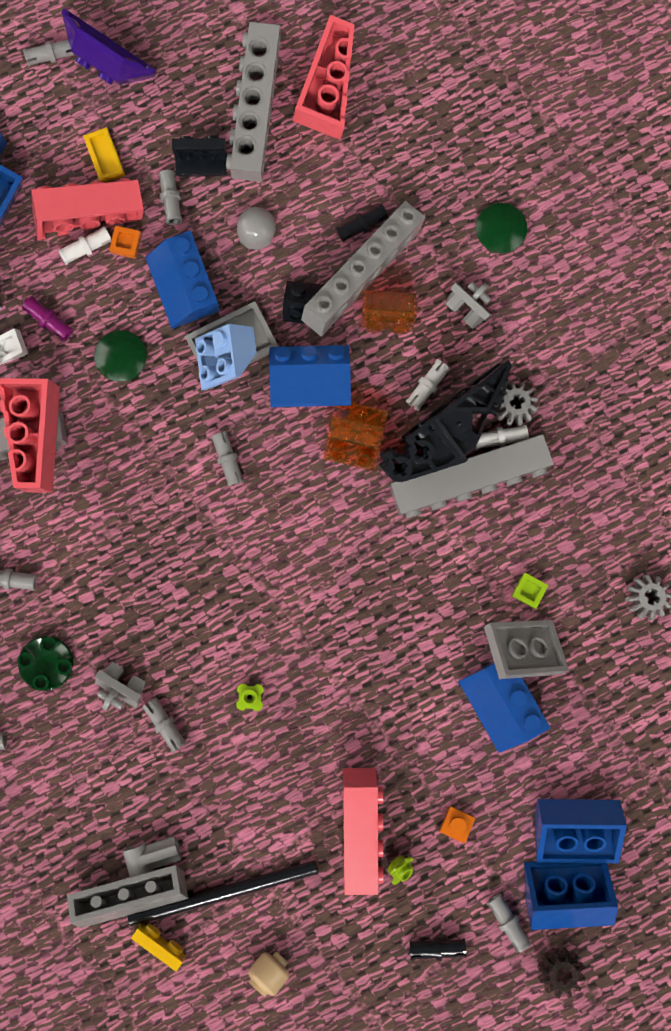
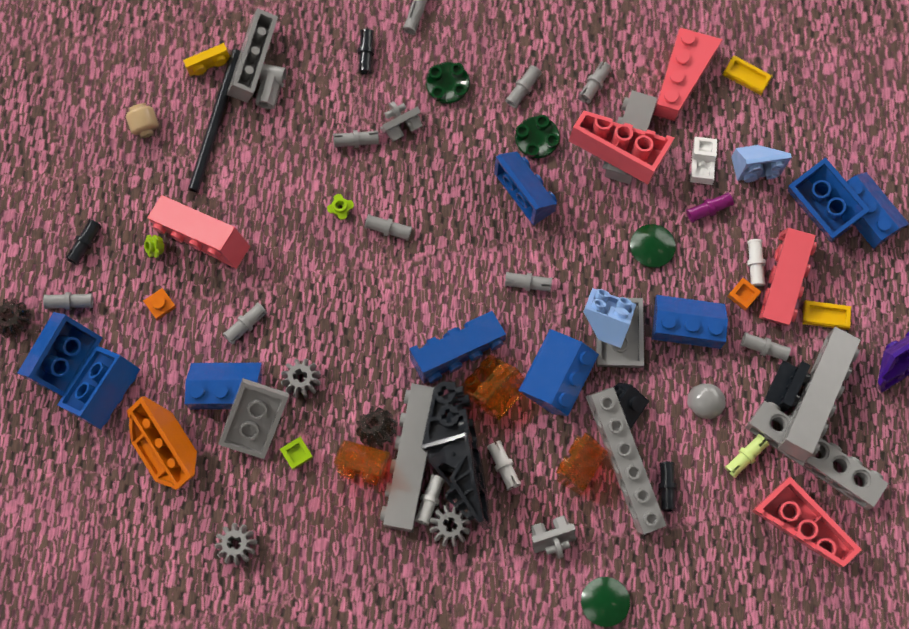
camera: 120 degrees right, 10 degrees down
(54, 774) = (366, 51): none -> black pin
(60, 534) = (537, 137): none -> dark green dish
(126, 513) = (524, 186): none -> blue slope
(198, 117) = (819, 395): none -> light grey brick
(245, 633) = (388, 227): none -> light grey pin
(290, 164) = (747, 455): none -> yellowish green pin
(335, 490) = (457, 347): none -> blue wedge
(429, 721) = (245, 323): none -> light grey pin
(445, 629) = (292, 382): none -> light grey gear
(453, 529) = (376, 428): none -> clear smoke gear
(505, 518) = (362, 462): none -> clear orange slope
(598, 726) = (161, 443): none -> orange wedge

